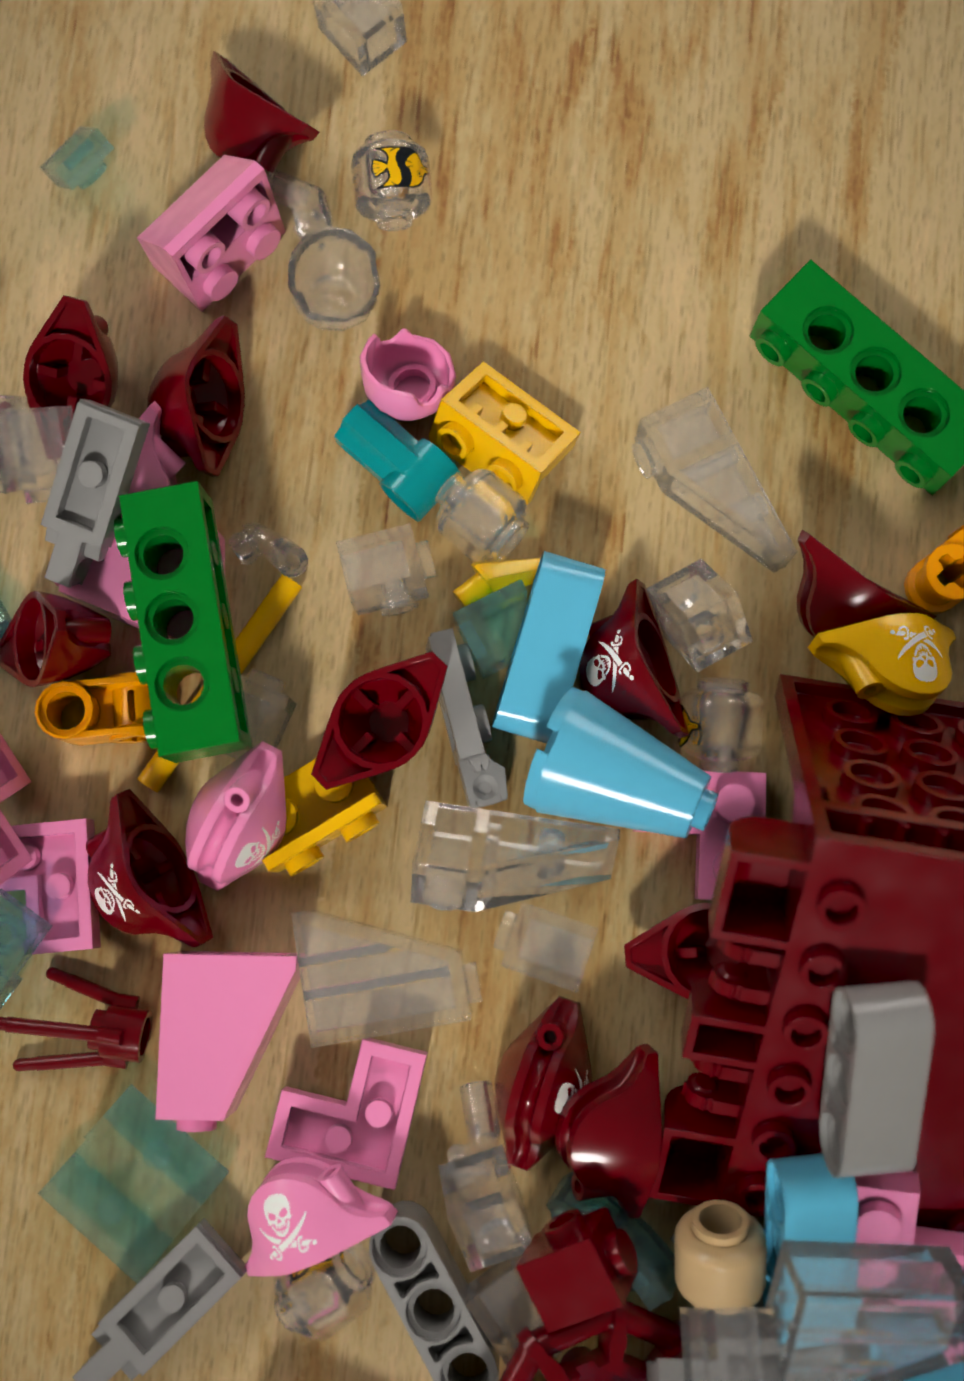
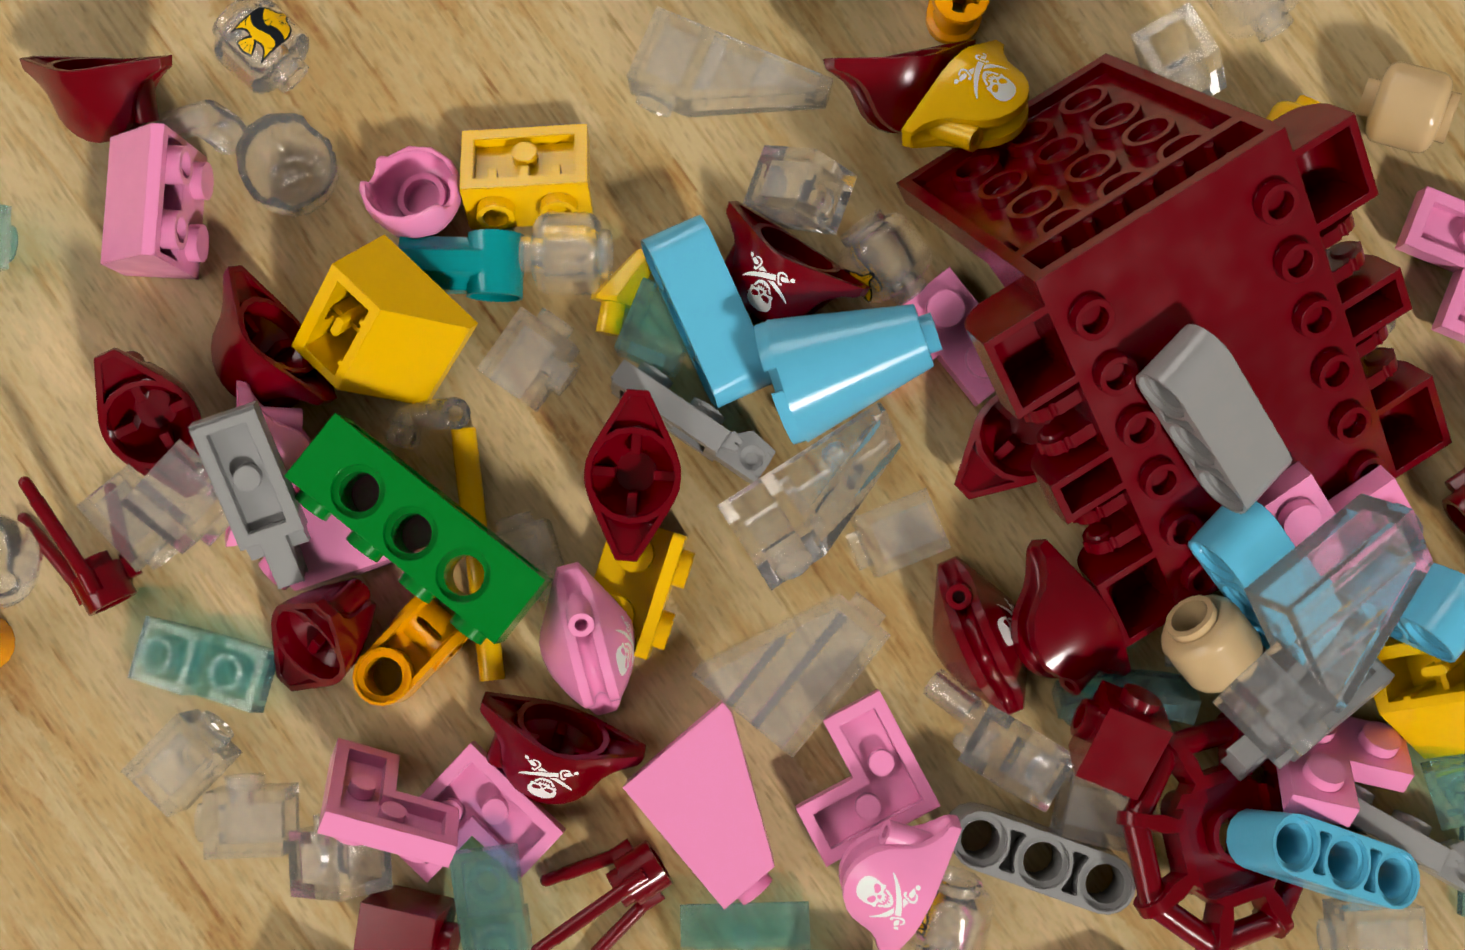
camera: 45 degrees left, 5 degrees up
(295, 451) = (383, 326): none -> yellow slope

